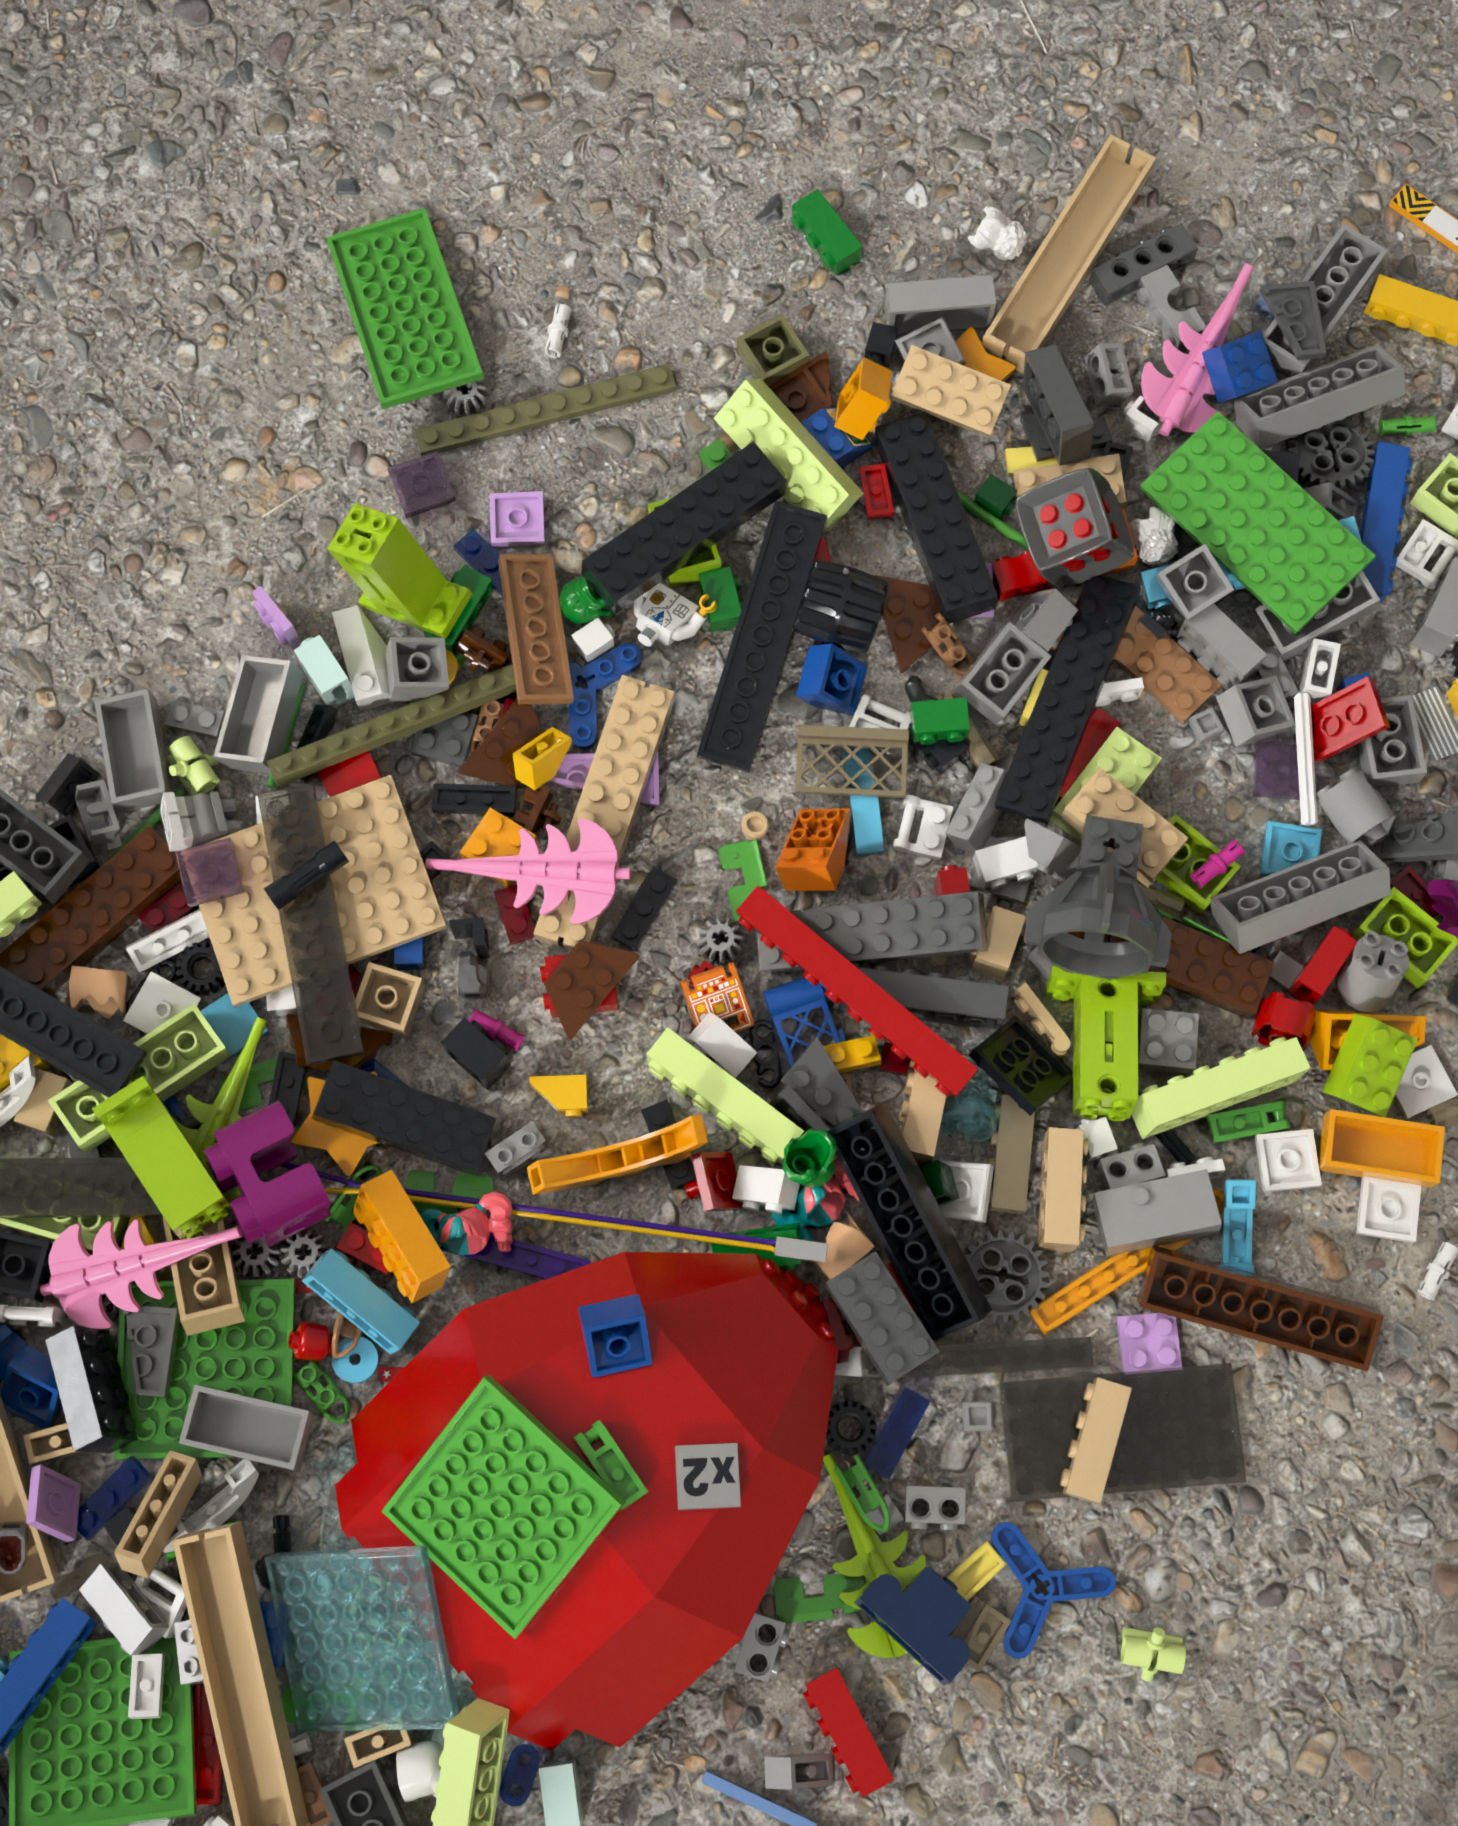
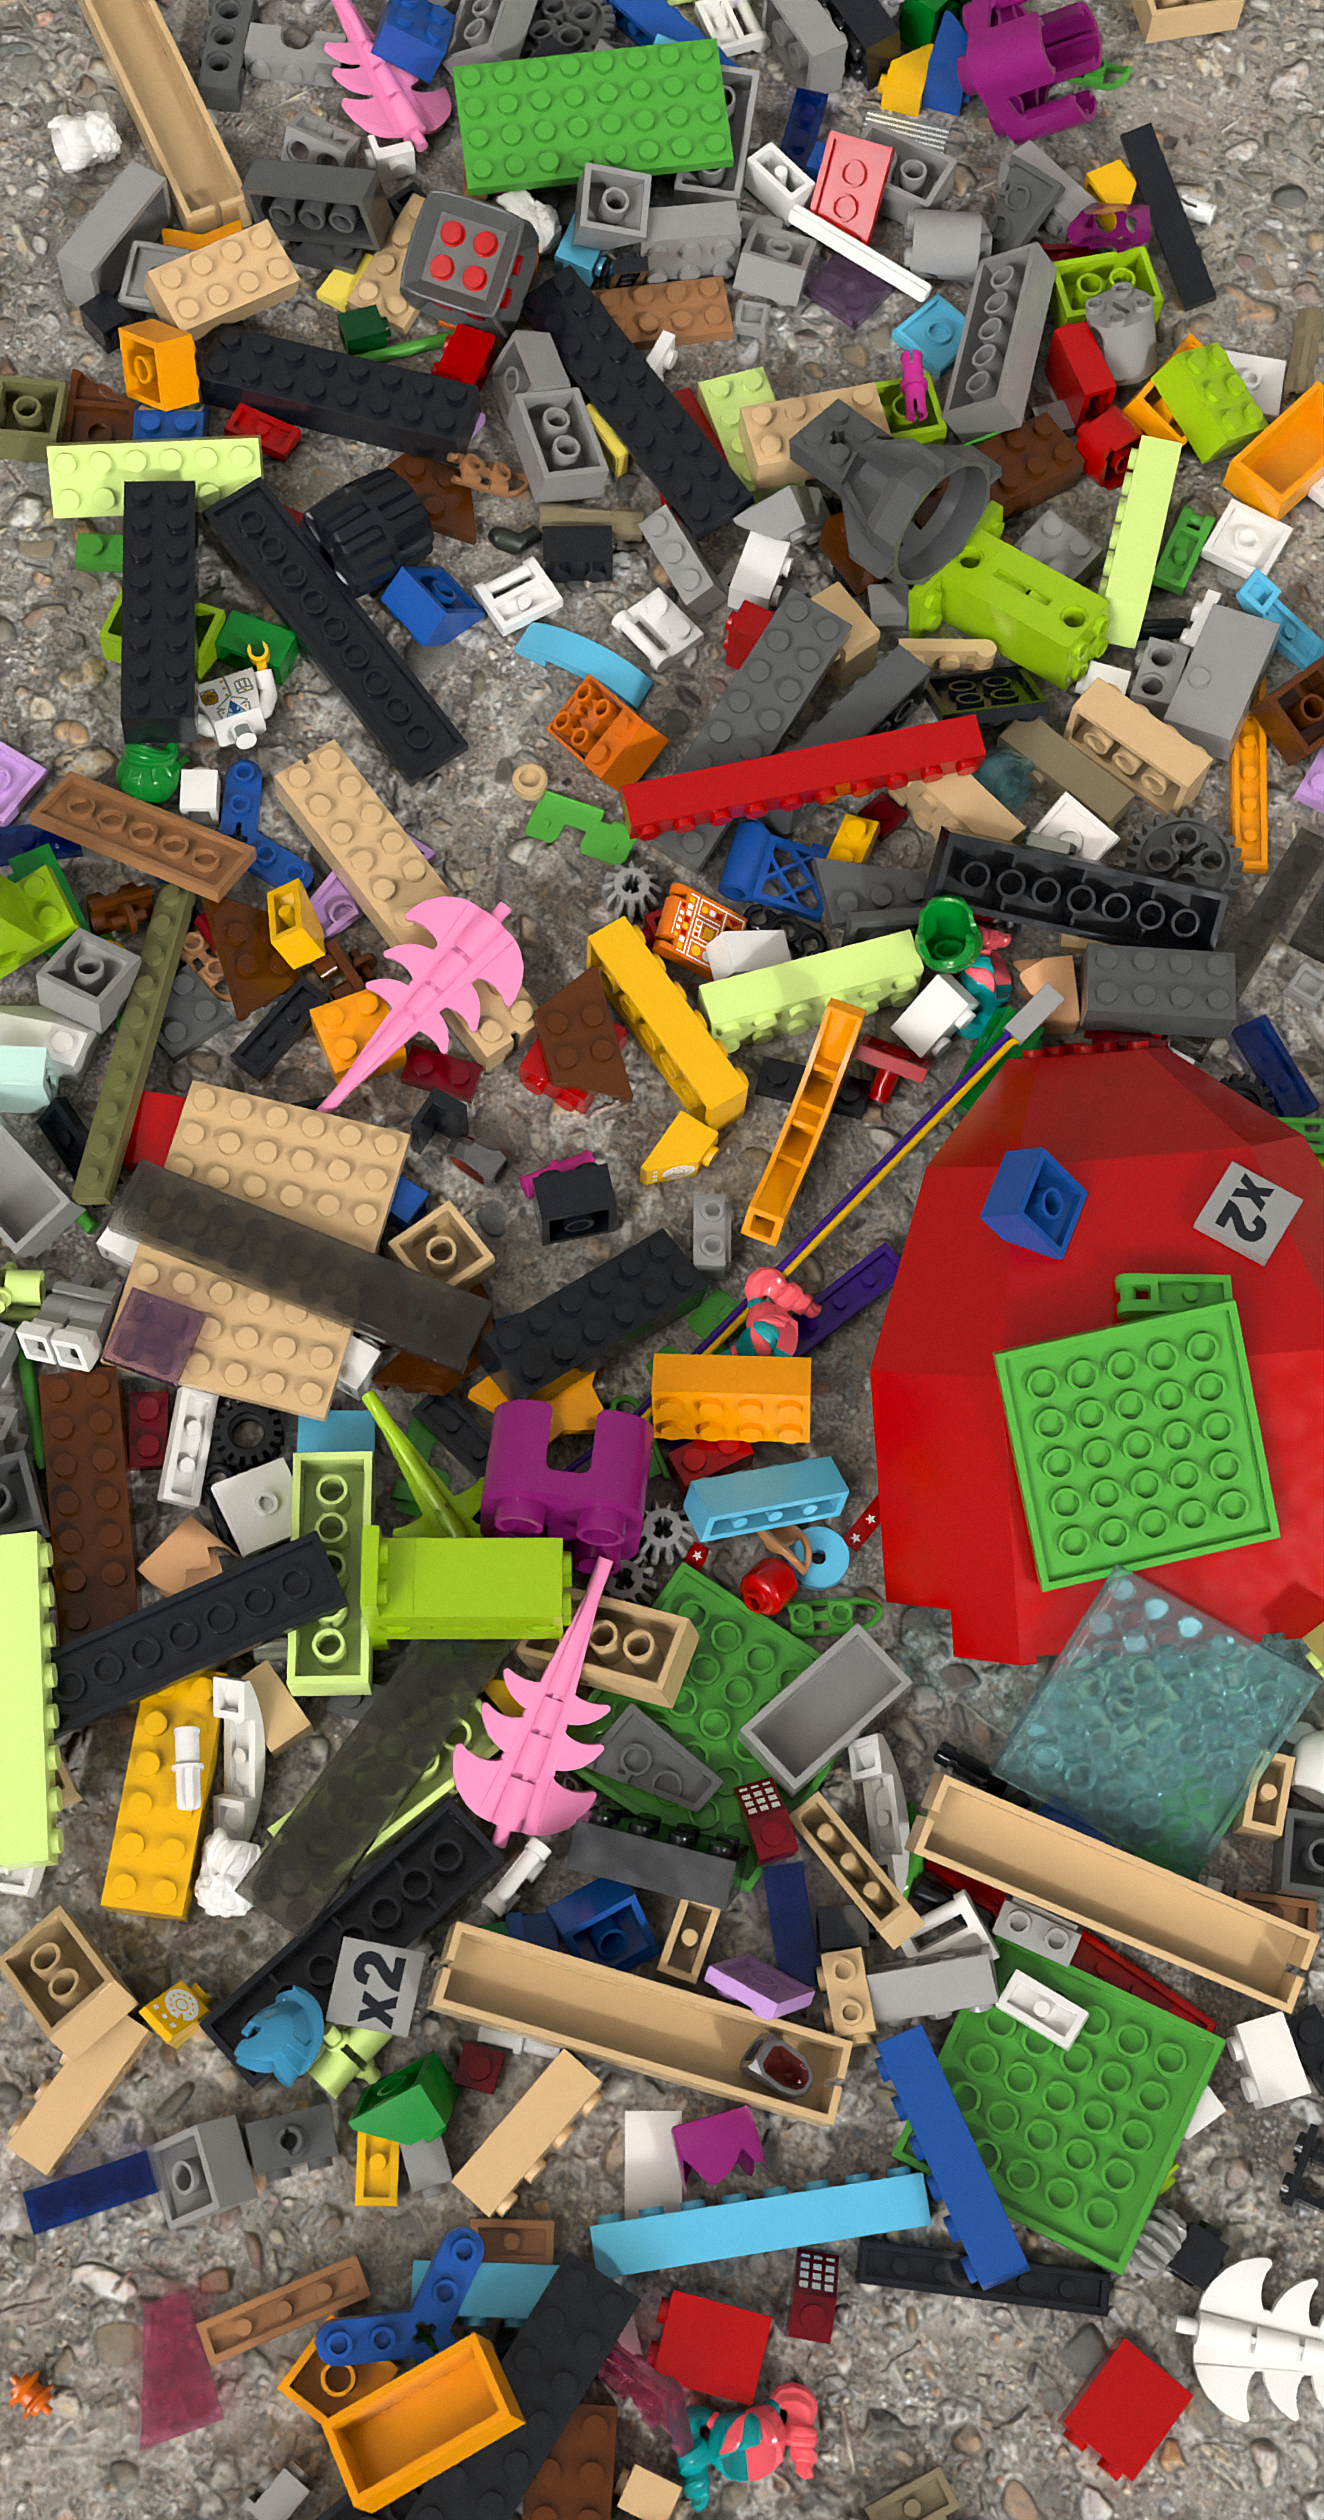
camera: 60 degrees left, 5 degrees down
(78, 1565) = (849, 1997): none -> tan brick
(156, 1439) = (766, 1821): none -> dark red slope
(288, 887) = (245, 1255): black axle -> none
(635, 1026) = (667, 1025): none -> yellow brick
(644, 909) = (537, 945): black plate -> none
(852, 738) = (513, 625): dark tan fence -> none
(939, 720) = (566, 526): green brick -> none
(1379, 656) = (804, 125): none -> clear blue plate

